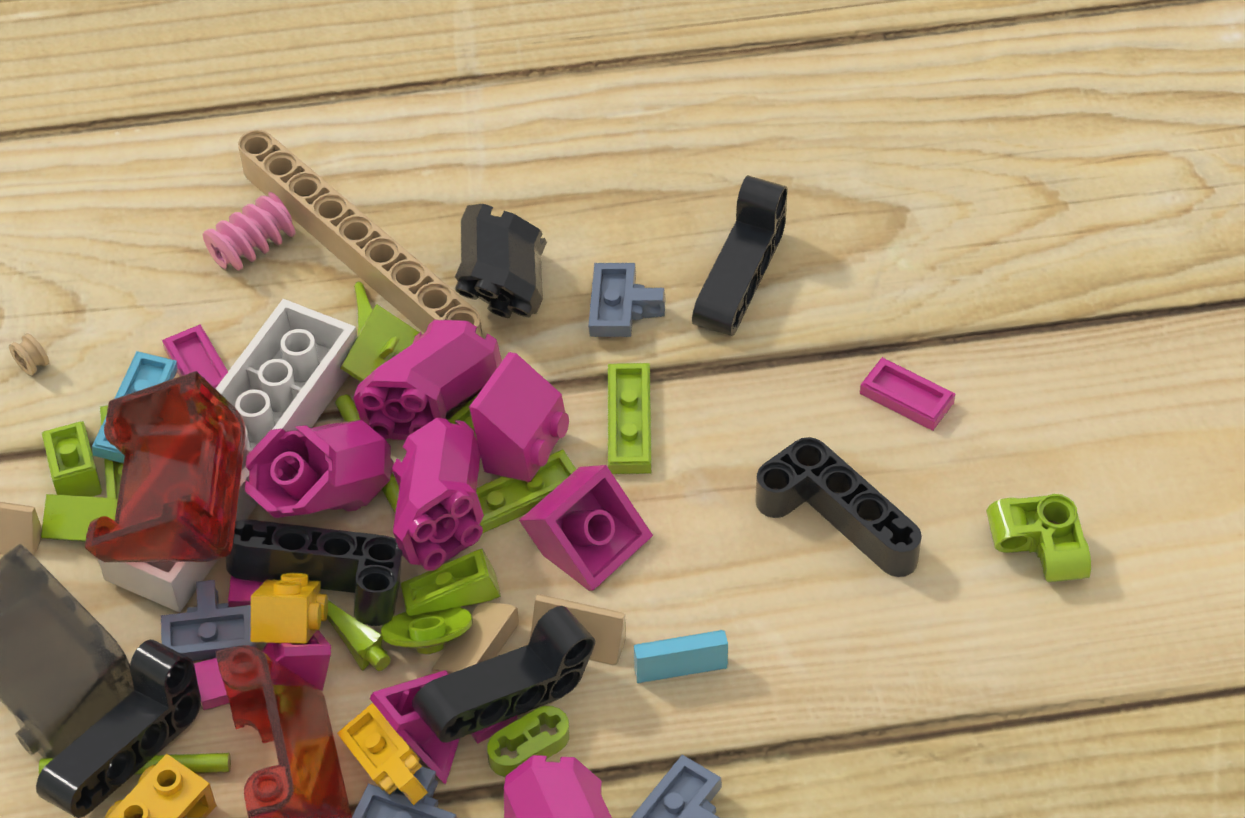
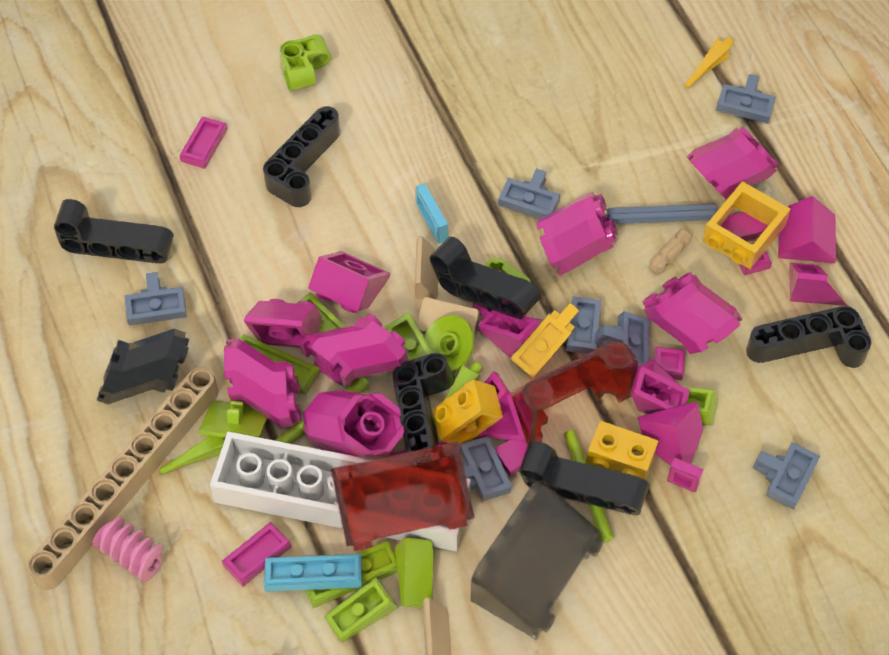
camera: 105 degrees left, 5 degrees up
(629, 418) = (251, 281): lime tile -> none

